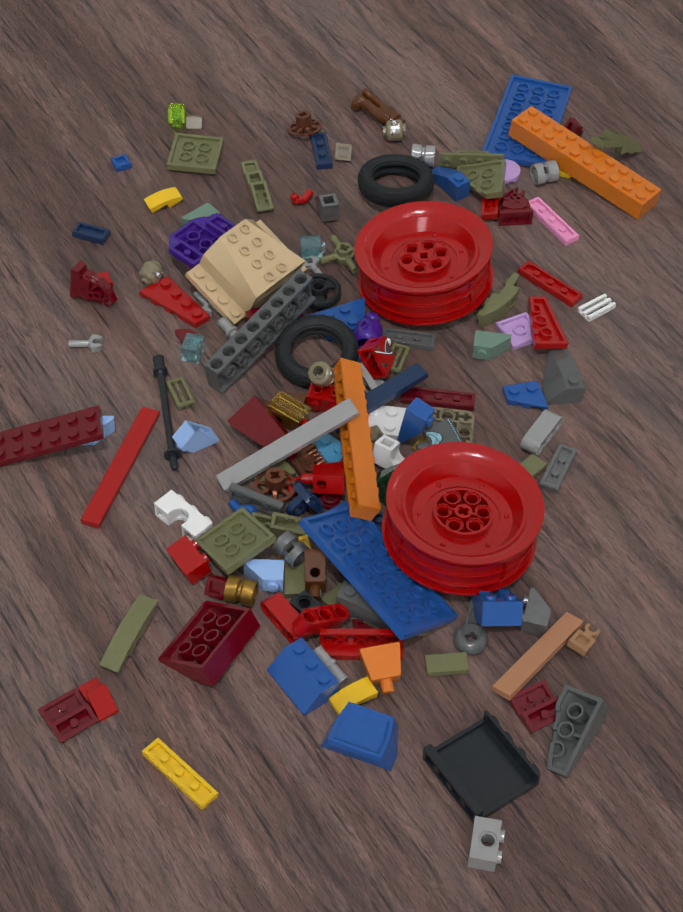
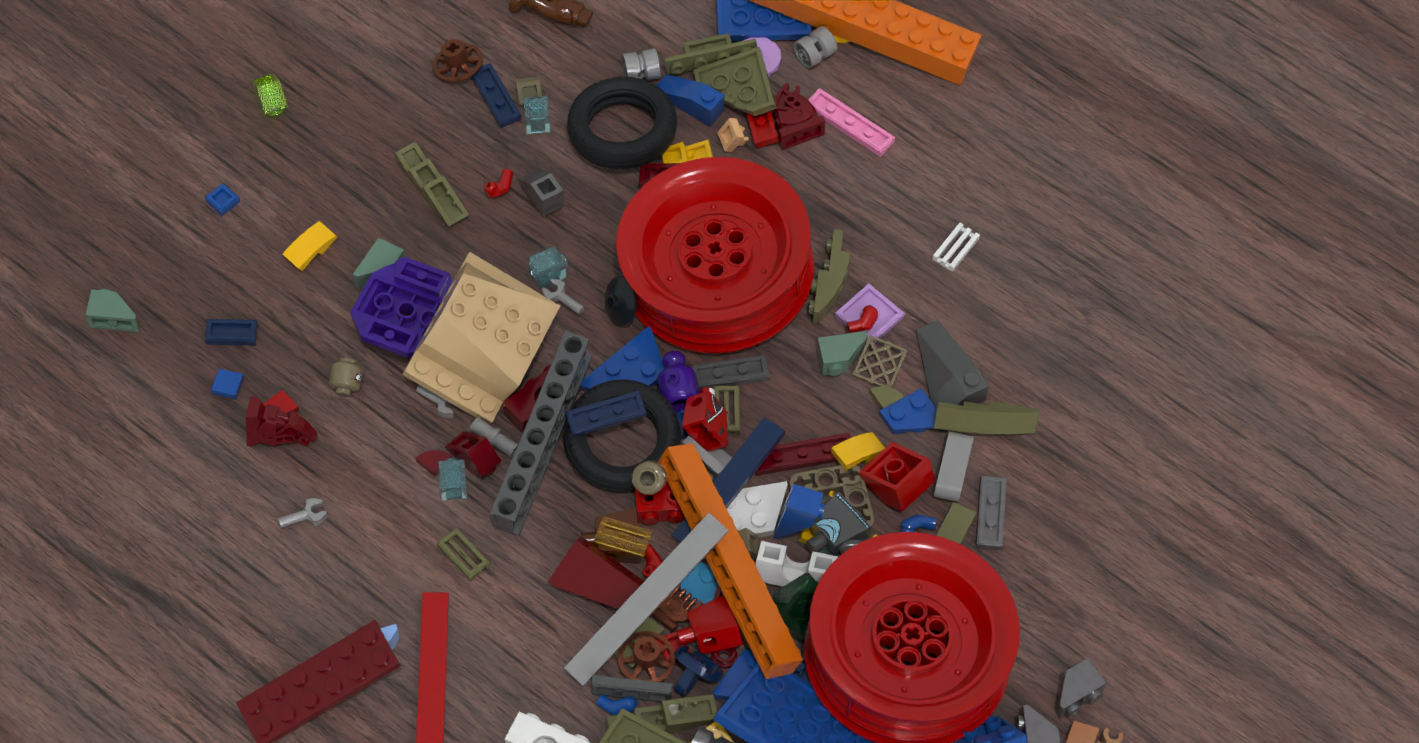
camera: 20 degrees left, 10 degrees up
(19, 202) = (110, 311): none -> sand green slope
(73, 258) = (227, 384): none -> blue tile
(160, 372) = (424, 531): black bar -> none
(176, 301) = (396, 409): red wing -> none
(194, 121) = (297, 96): dark tan slope -> none
(194, 437) = (512, 618): light blue slope -> none
(195, 153) = (322, 153): olive plate -> none
(214, 337) = (476, 451): none -> dark red slope
(308, 331) = (605, 414): none -> dark blue tile
(319, 287) = (587, 326): black wheel -> none
(342, 165) = (537, 115): none -> clear light blue brick
(342, 254) = (594, 262): olive bar -> none
(349, 276) = (620, 301): none -> black dish
(394, 130) = (586, 33): dark tan head -> none
(468, 203) = (732, 135): none -> light nougat tile
(477, 403) = (857, 449): none -> yellow slope
(499, 426) = (898, 476): none -> red slope
(510, 378) = (885, 395): none -> olive tile
(515, 330) = (865, 322): none -> red arm
(523, 367) = (887, 344): none -> dark tan window
(544, 325) = (901, 299): red wing -> none
(550, 284) = (882, 226): red tile -> none
(576, 409) = (986, 419): none -> olive slope
(578, 591) = (1079, 686): none -> flat silver slope

